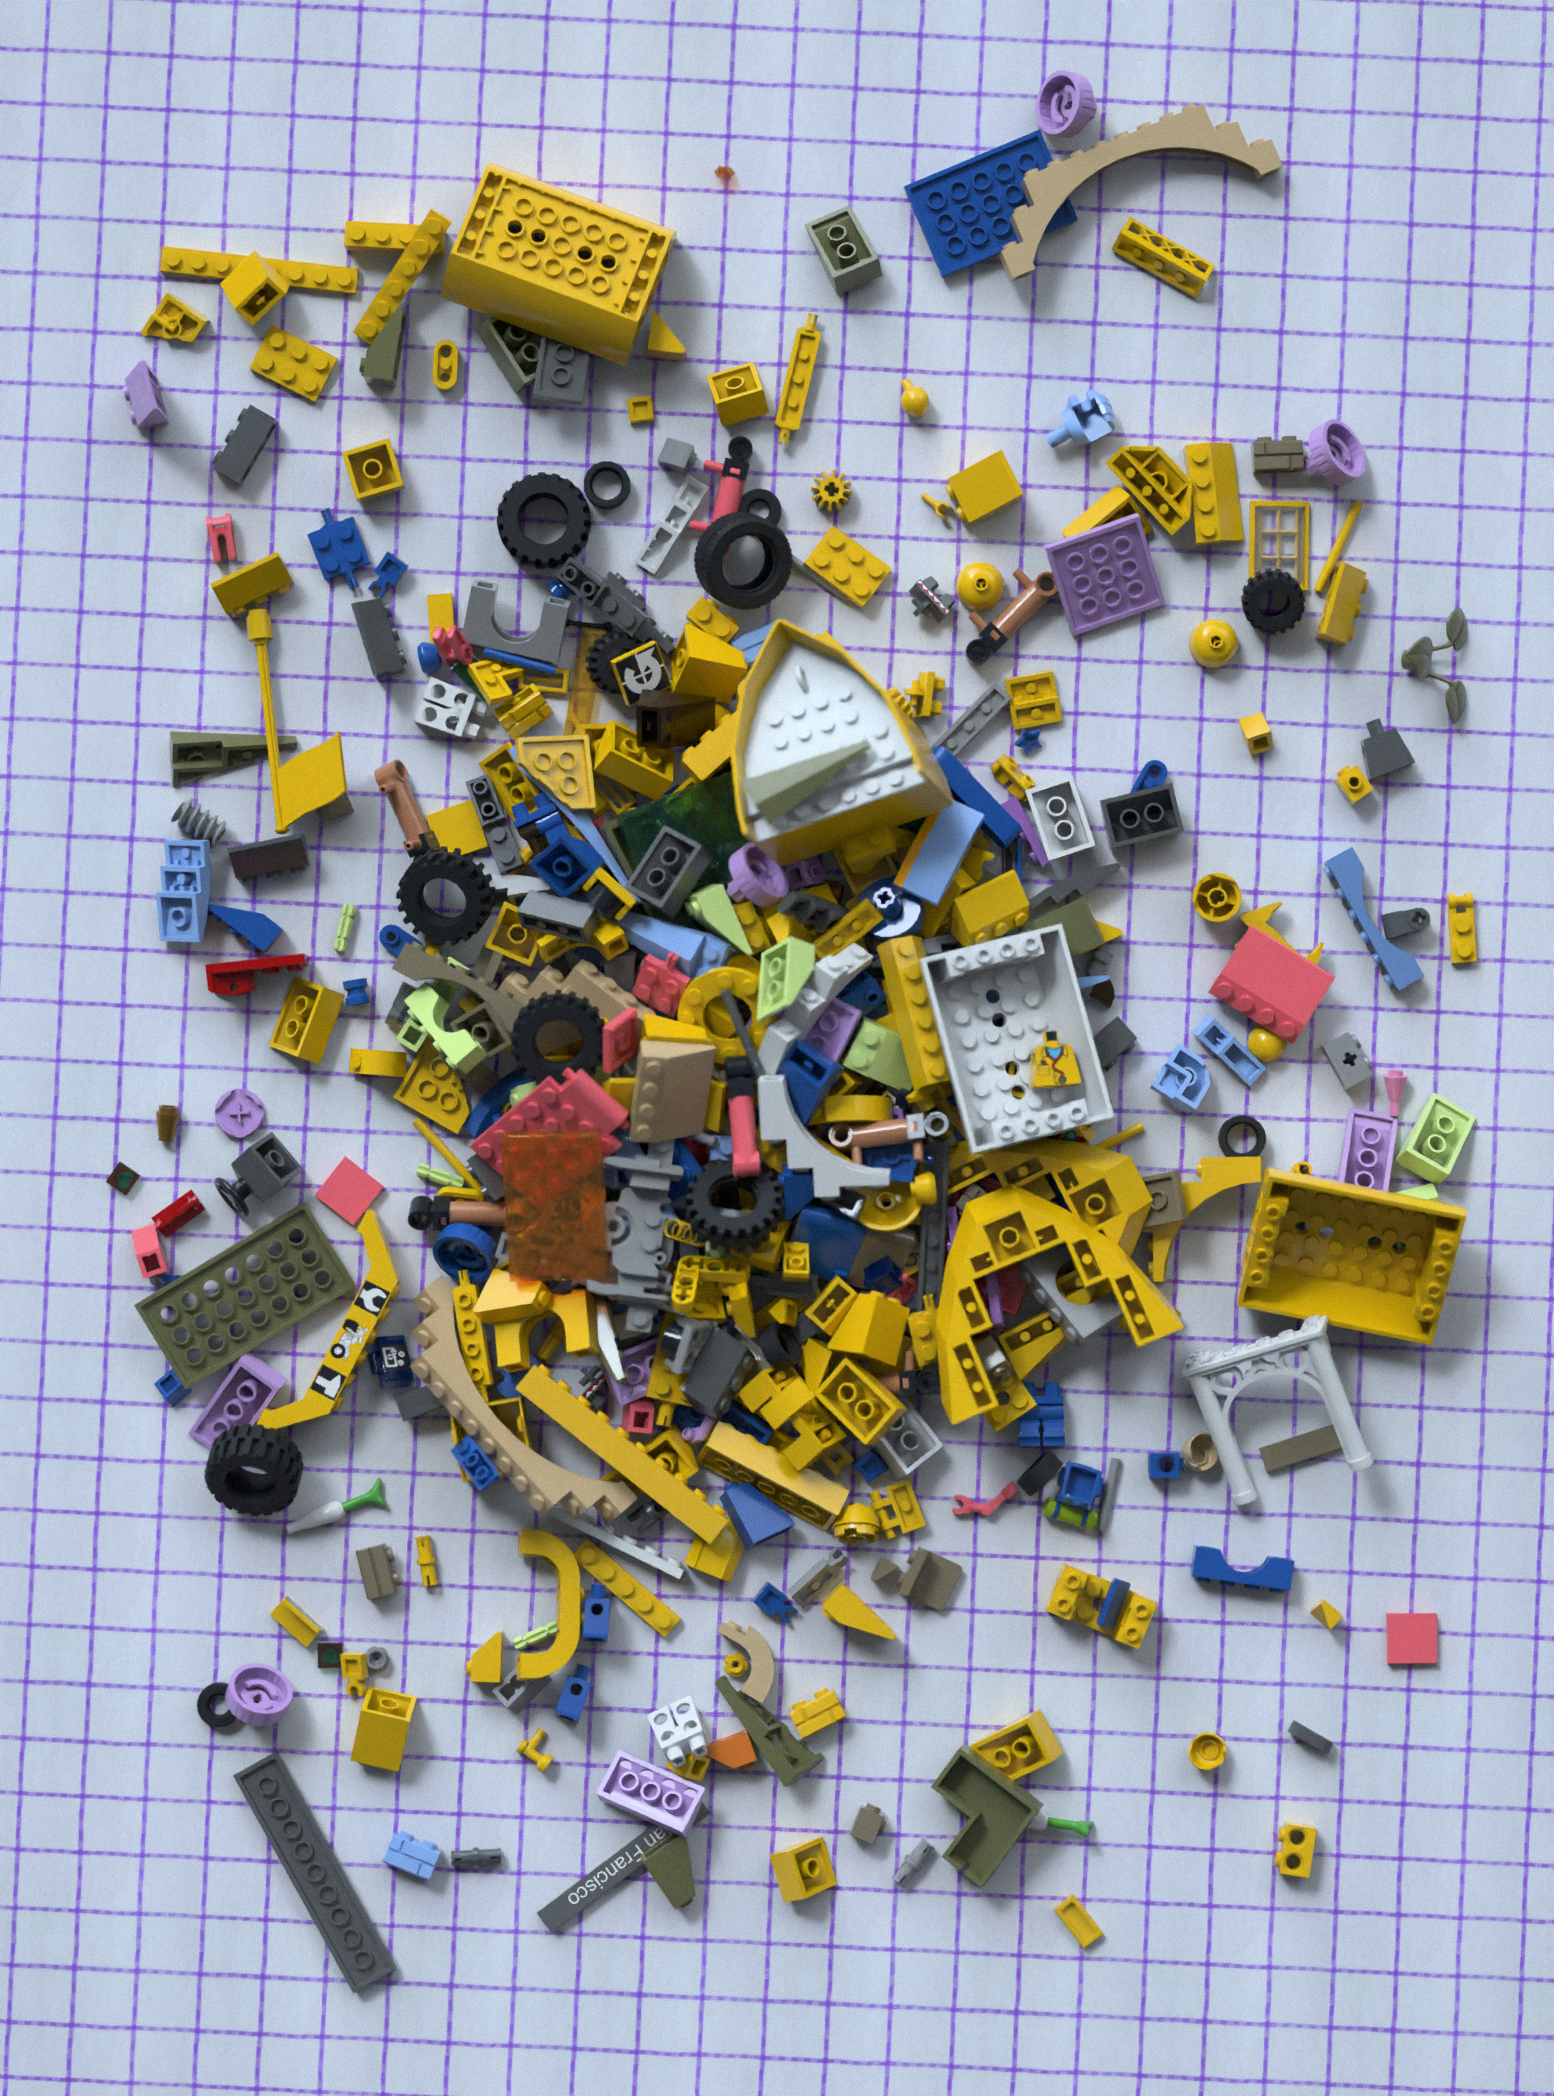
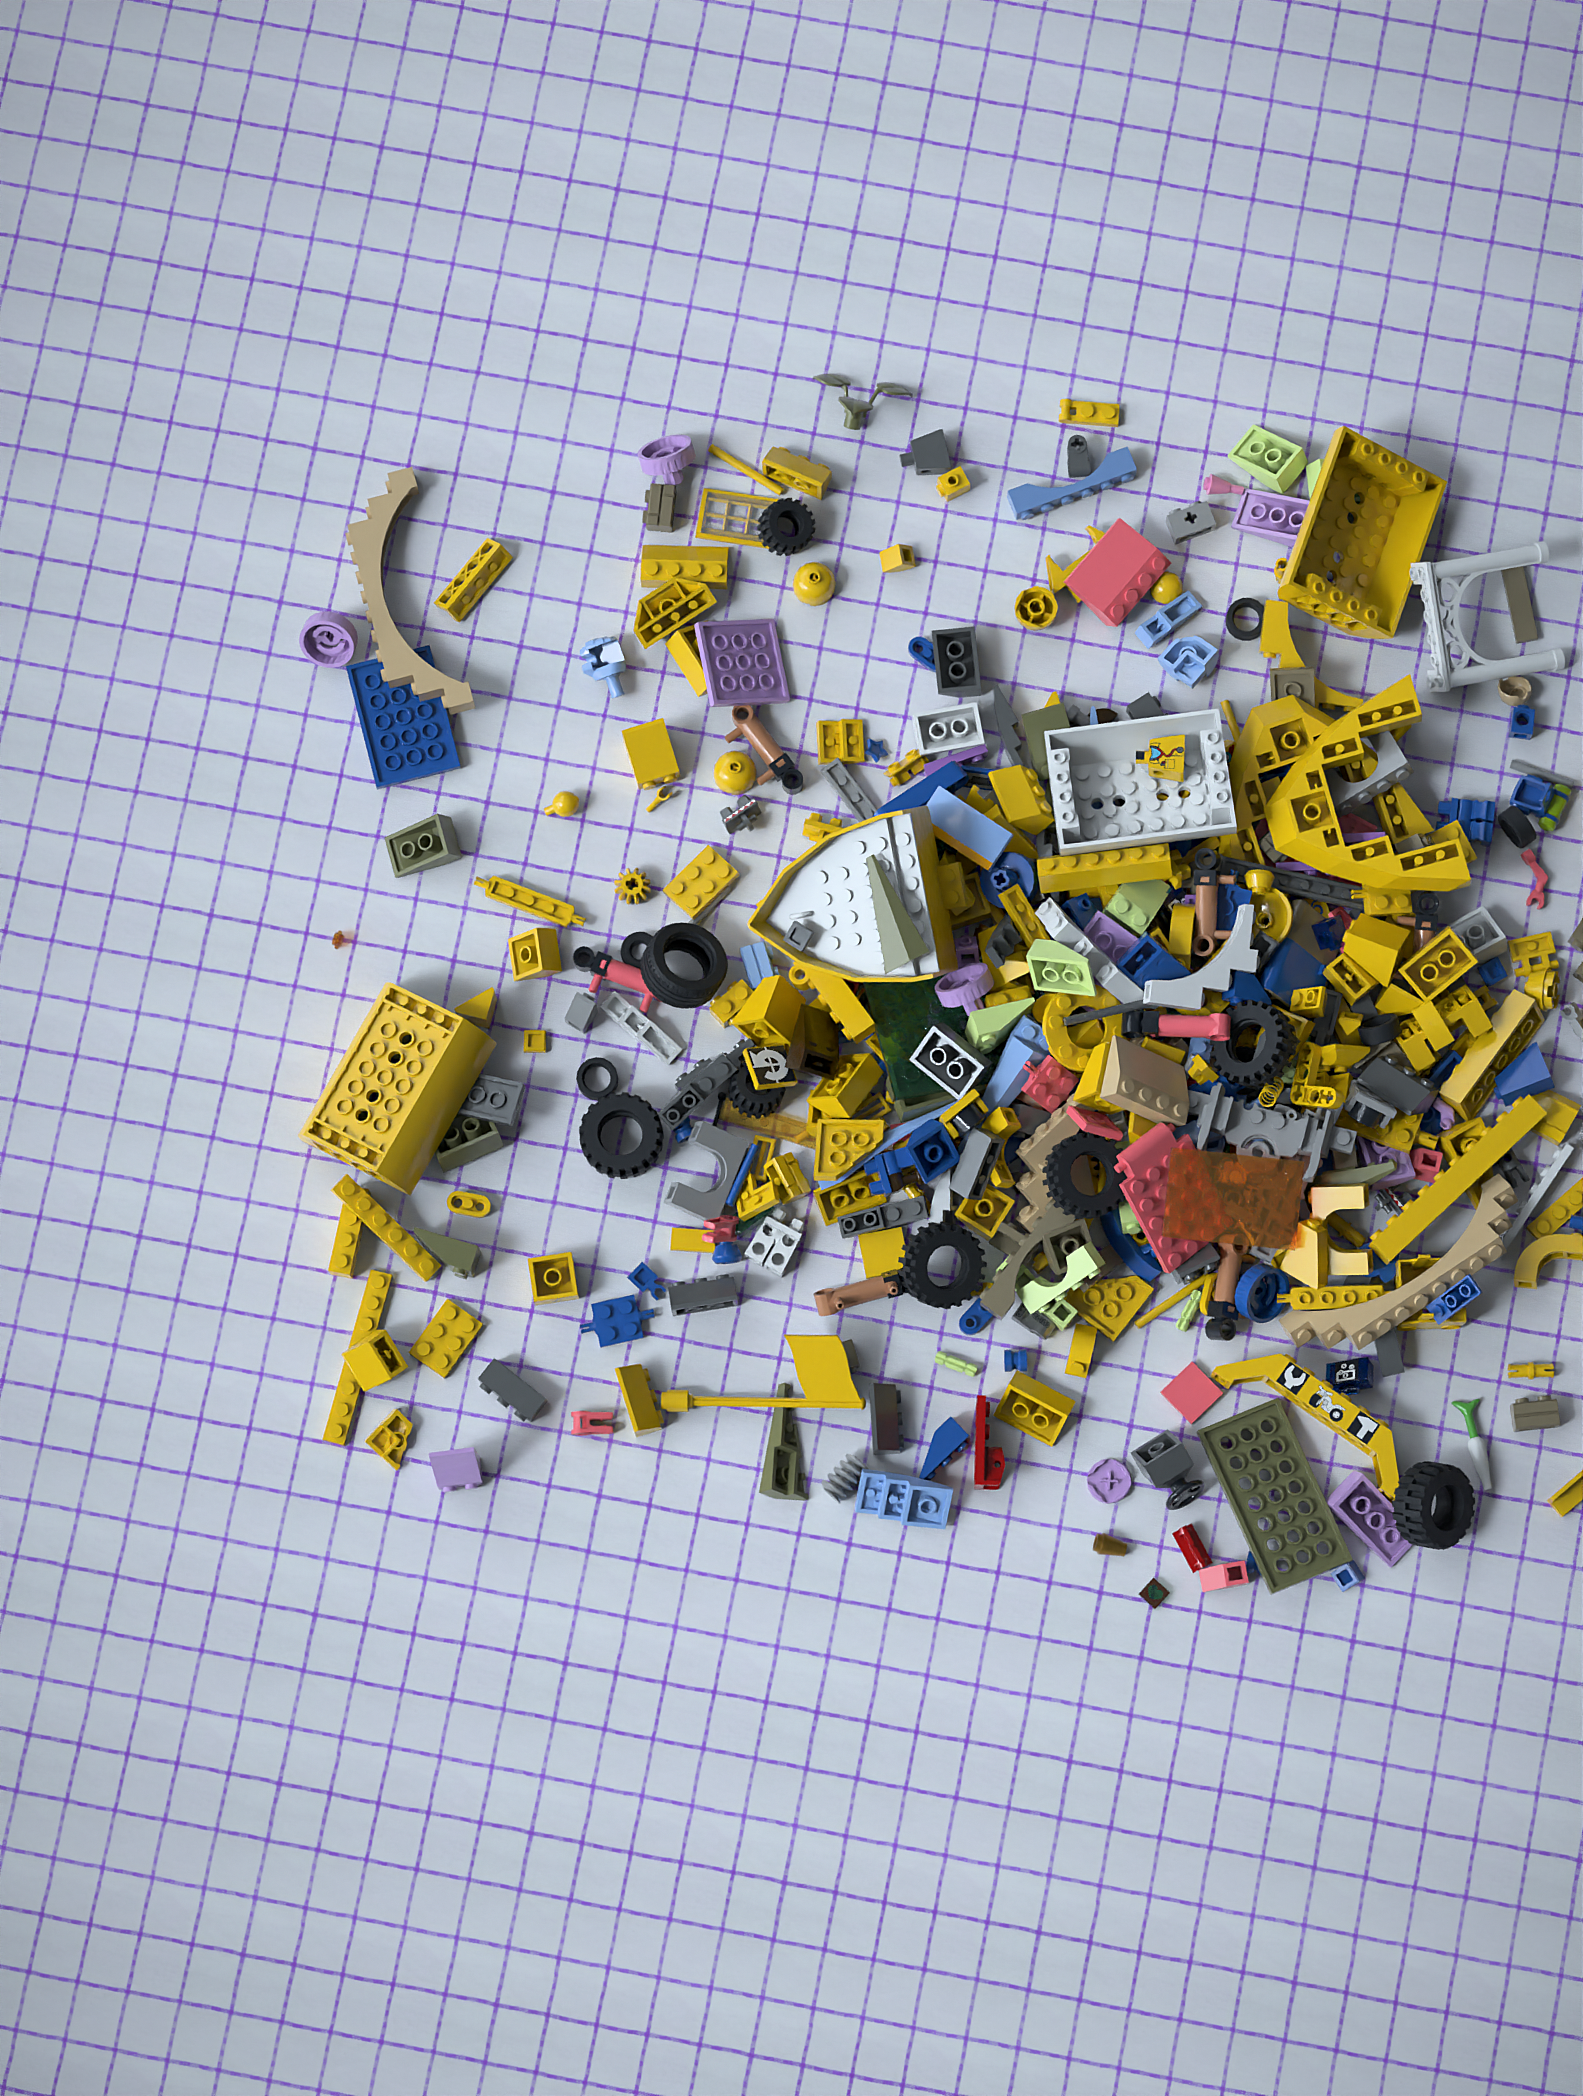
camera: 75 degrees left, 10 degrees down
(699, 1153) = (1202, 1071): none -> yellow tile
(775, 678) = (798, 936): none -> plate

